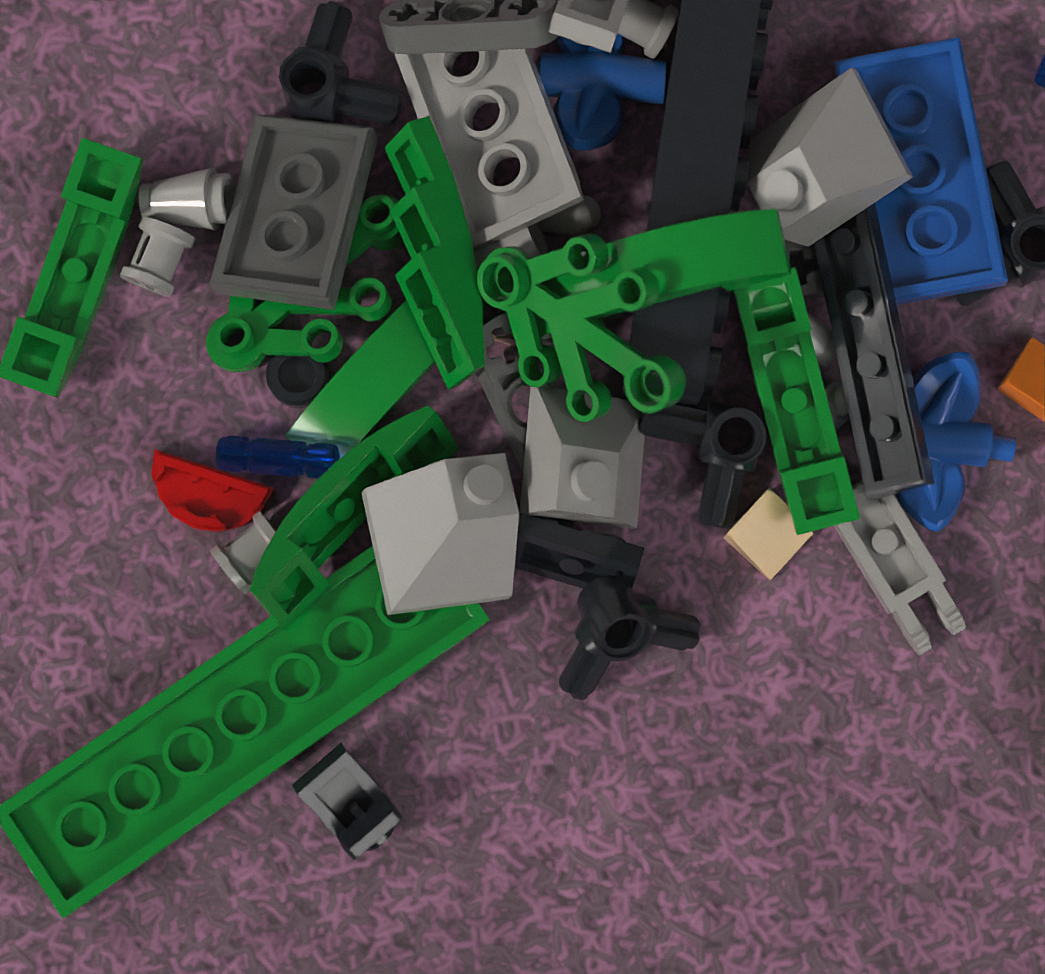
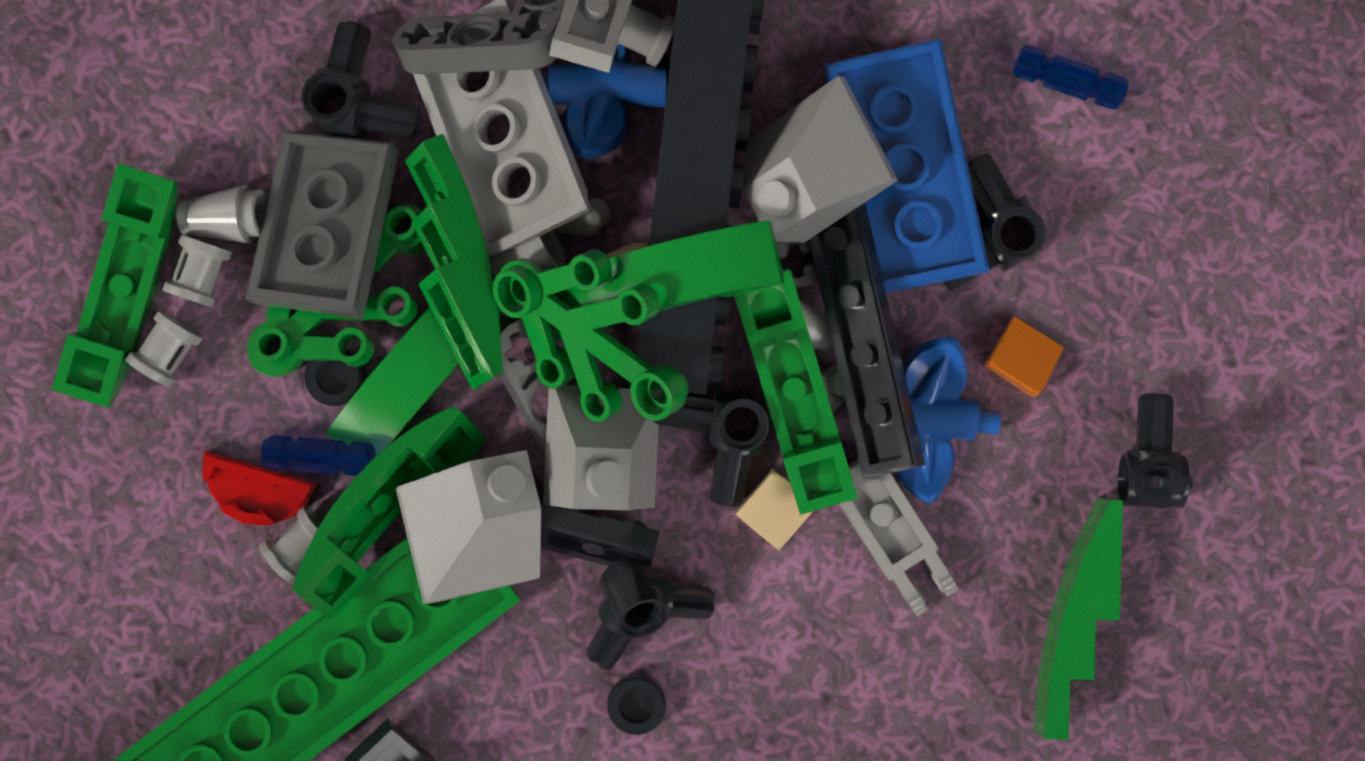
camera: 10 degrees left, 5 degrees up
(118, 337) = (164, 349): none -> light grey bush
(611, 740) = (636, 704): none -> black tile

